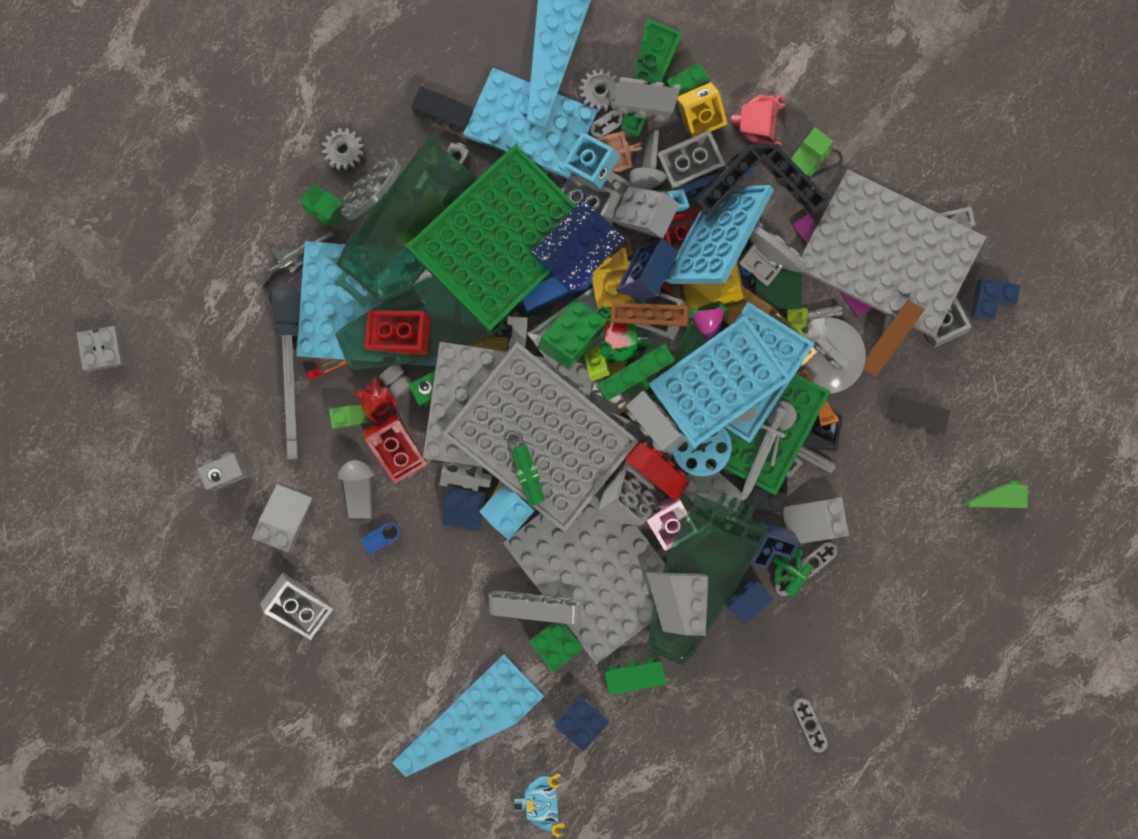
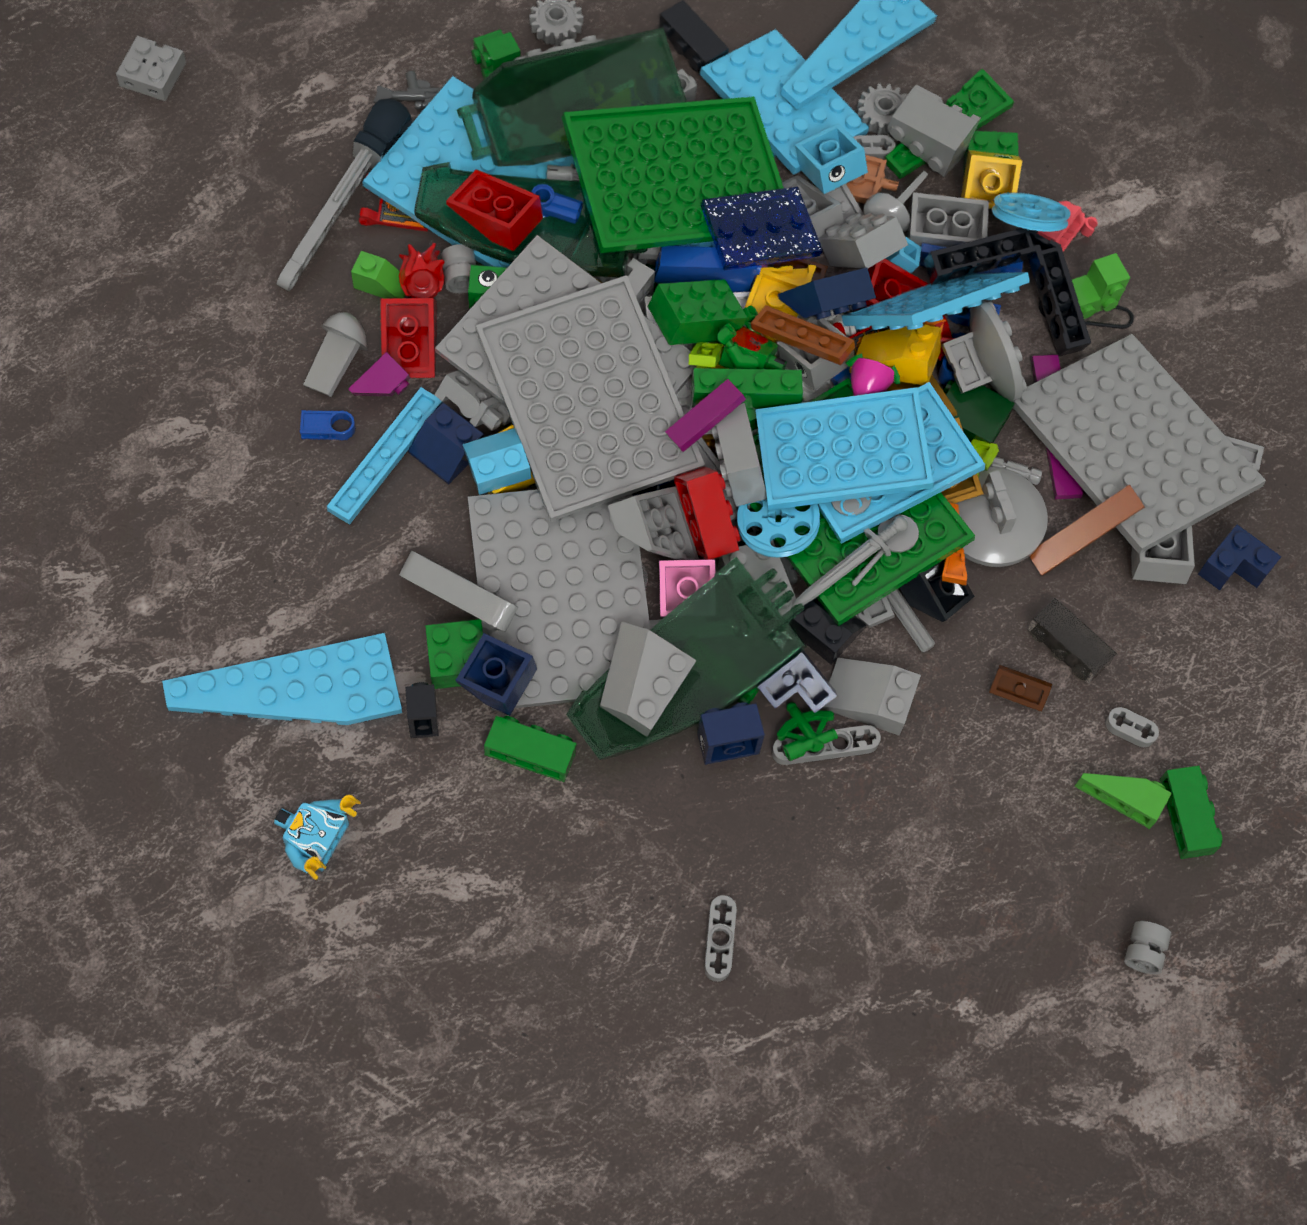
camera: 25 degrees right, 20 degrees down
(224, 471) = (195, 251): light grey brick -> none
(282, 518) = (224, 342): light grey slope -> none
(295, 606) = (174, 442): light grey slope -> none
(397, 489) = (382, 379): none -> magenta slope
(430, 538) = (383, 457): none -> medium azure plate
(436, 302) = (557, 204): none -> blue piece
(528, 475) = (547, 422): green piece -> none
(559, 695) = (422, 710): none -> black brick
(581, 722) = (428, 763): dark blue brick -> none
(591, 649) = (497, 673): none -> dark blue slope
(623, 413) = (705, 415): none -> magenta tile
(744, 128) = (1031, 212): none -> medium azure wedge
(902, 464) = (1020, 688): none -> reddish brown plate
(980, 453) = (1132, 727): none -> light grey beam
(1043, 486) = (1191, 812): none -> green brick
(1058, 588) = (1147, 948): none -> light grey wheel

